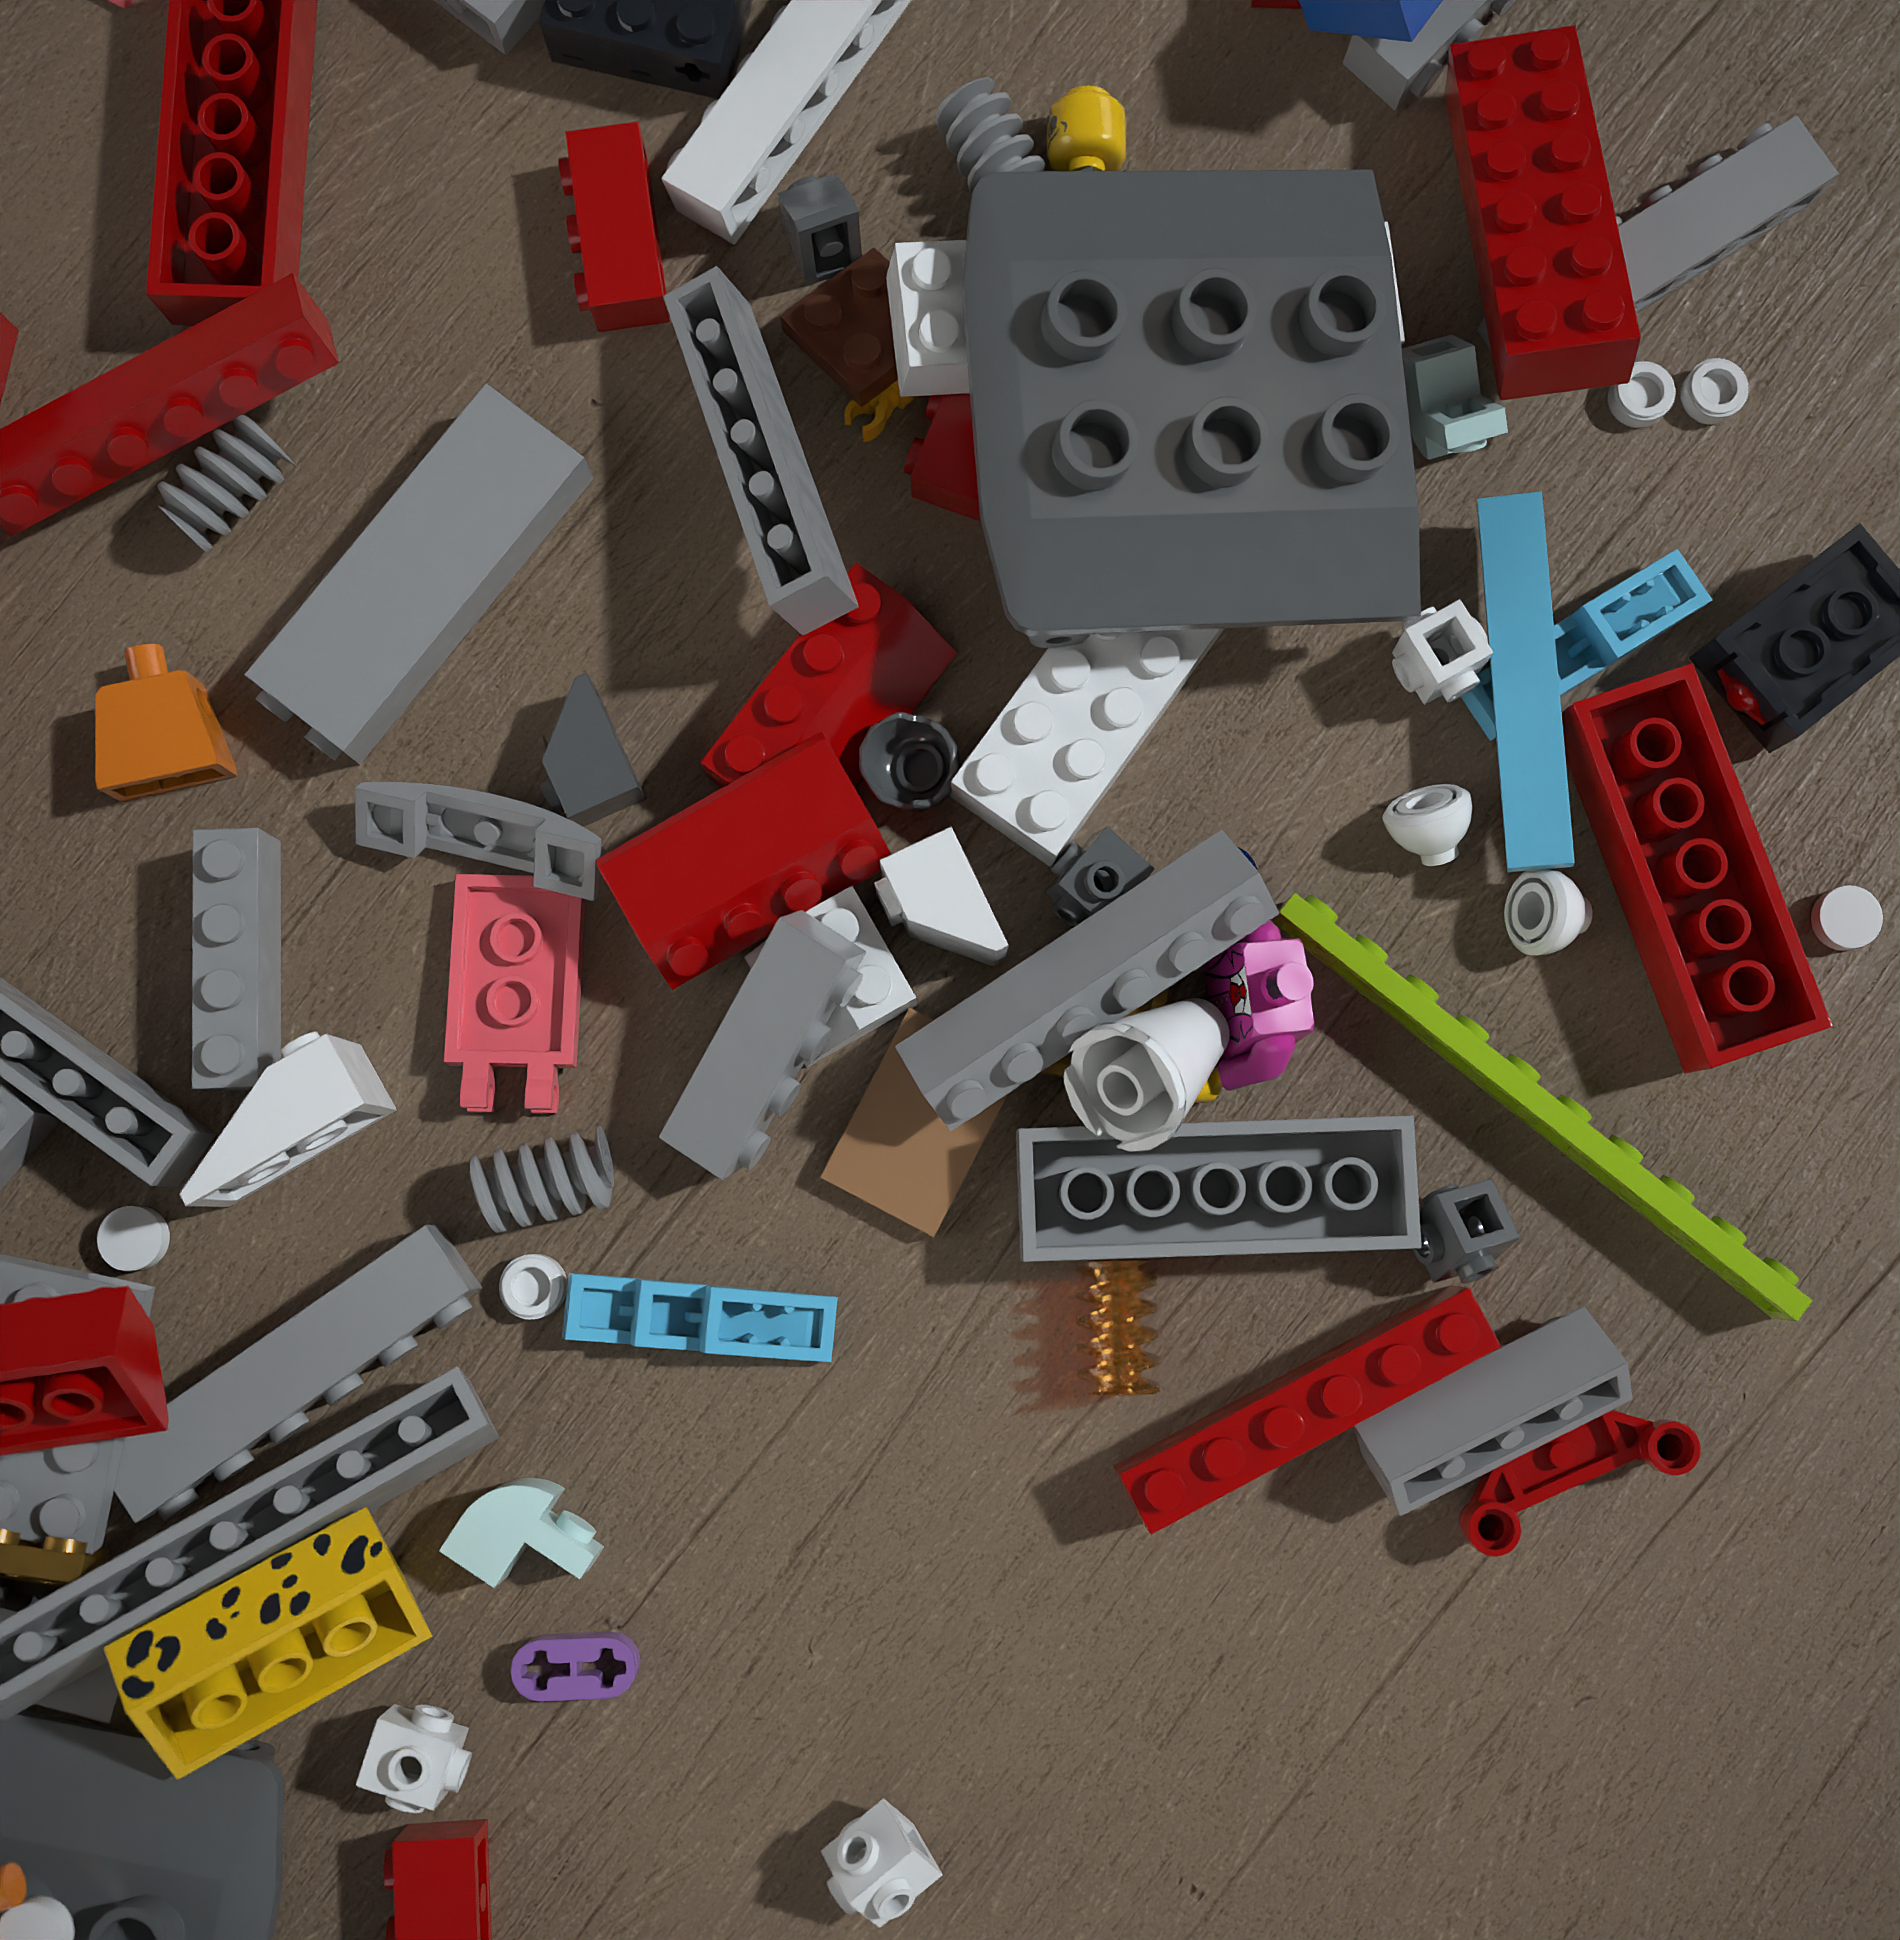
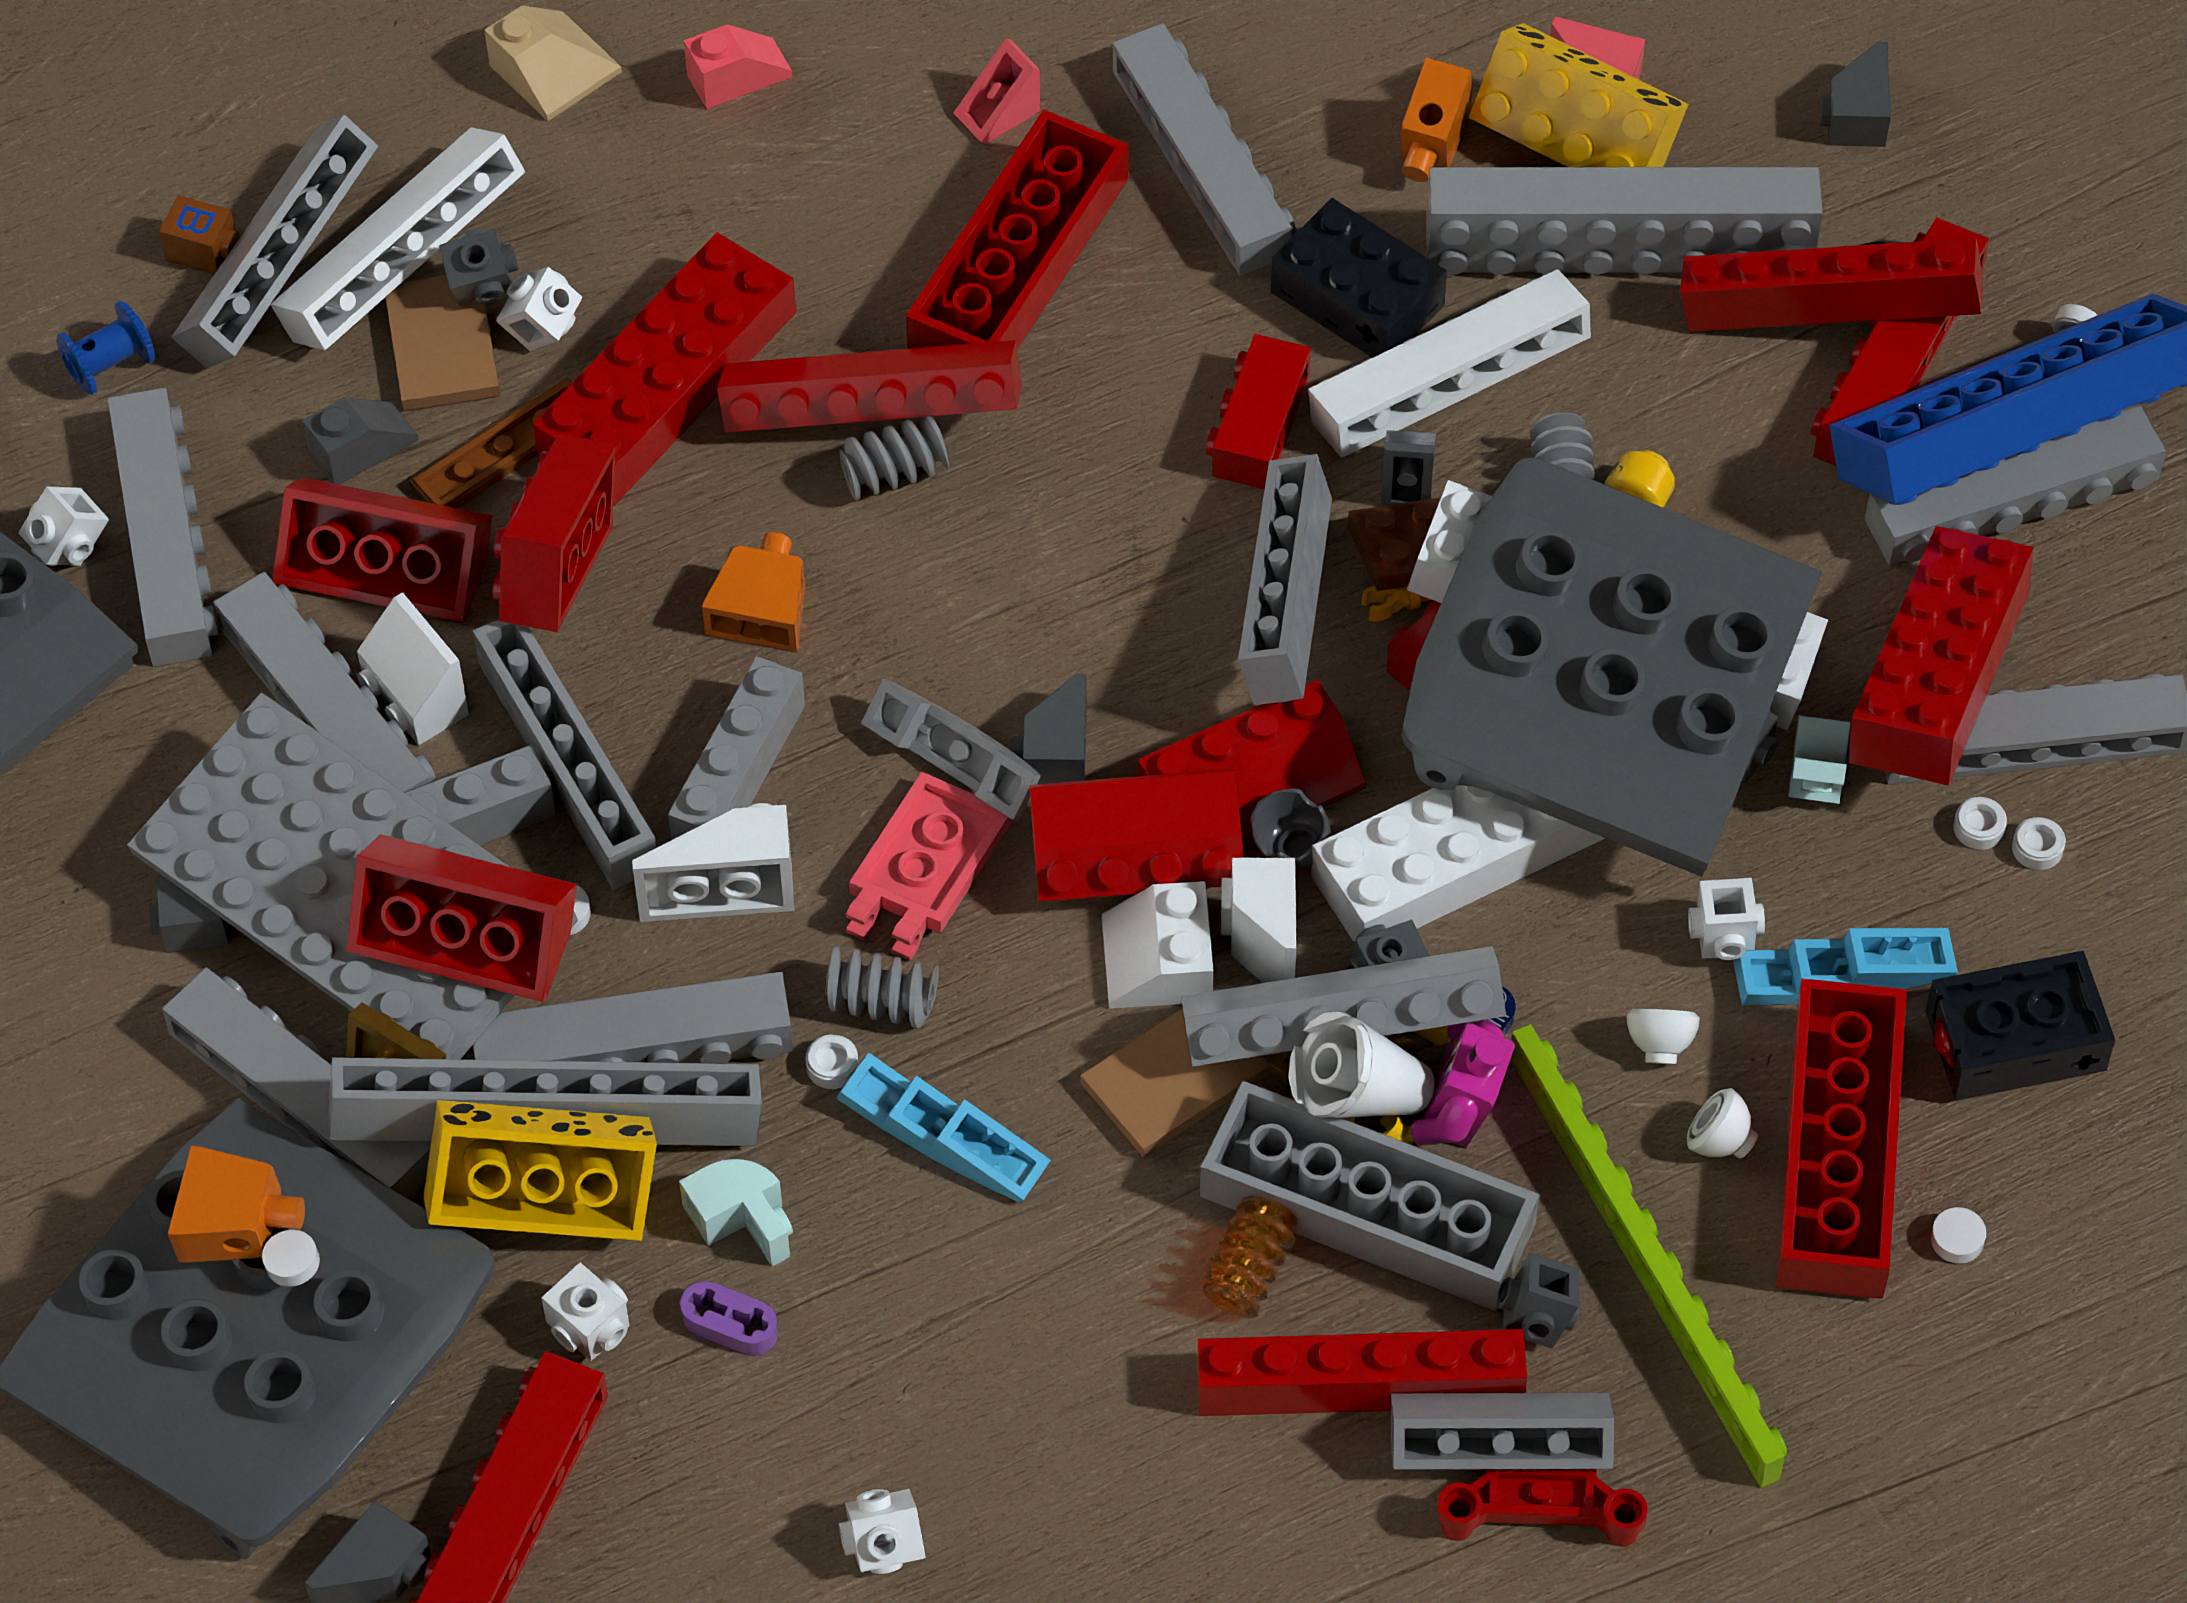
camera: 30 degrees right, 25 degrees down
(420, 576) = (999, 573): light grey brick -> none
(763, 1045) = (1085, 954): light grey brick -> none
(1525, 683) = (1777, 960): medium azure tile -> none

